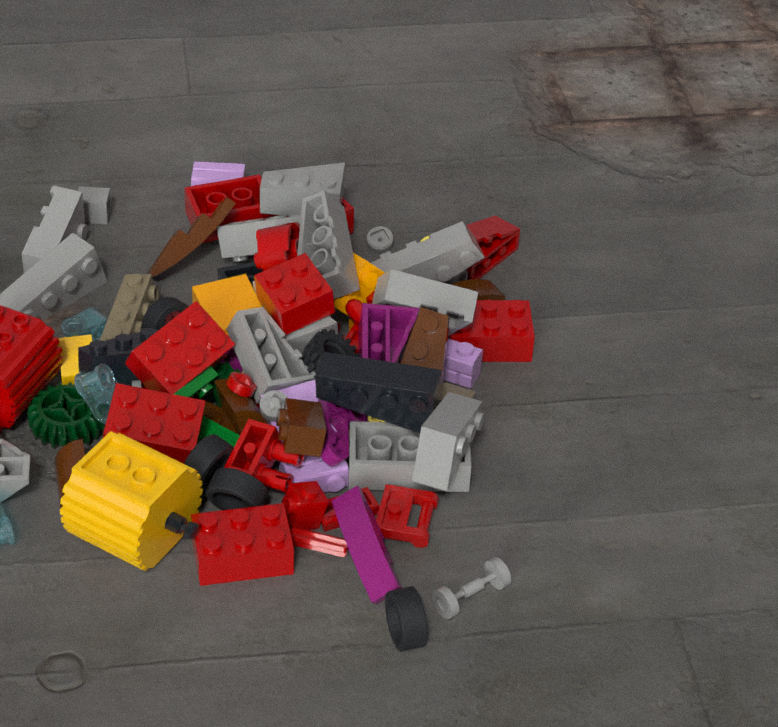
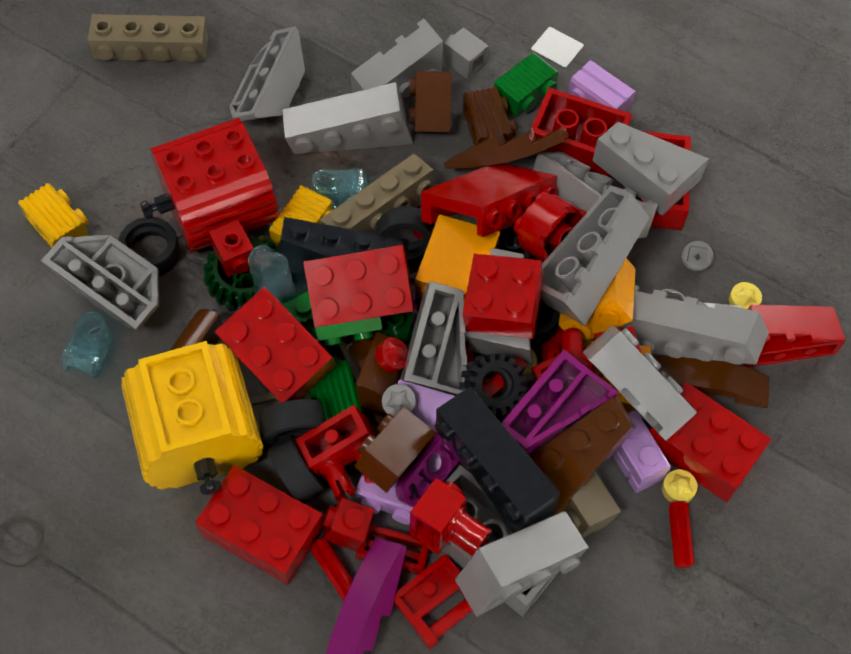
camera: 40 degrees right, 20 degrees up
(52, 393) = (231, 247): none -> red brick
(107, 237) = (432, 101): none -> reddish brown brick
(147, 233) = (487, 115): none -> reddish brown brick
(153, 173) = (557, 46): none -> white sticker
(158, 202) = (526, 83): none -> green brick
(234, 251) = (490, 194): none -> red panel
(374, 443) = (443, 519): none -> red brick
(495, 367) = (679, 486): none -> light yellow tile
(521, 390) = (681, 534): none -> red axle

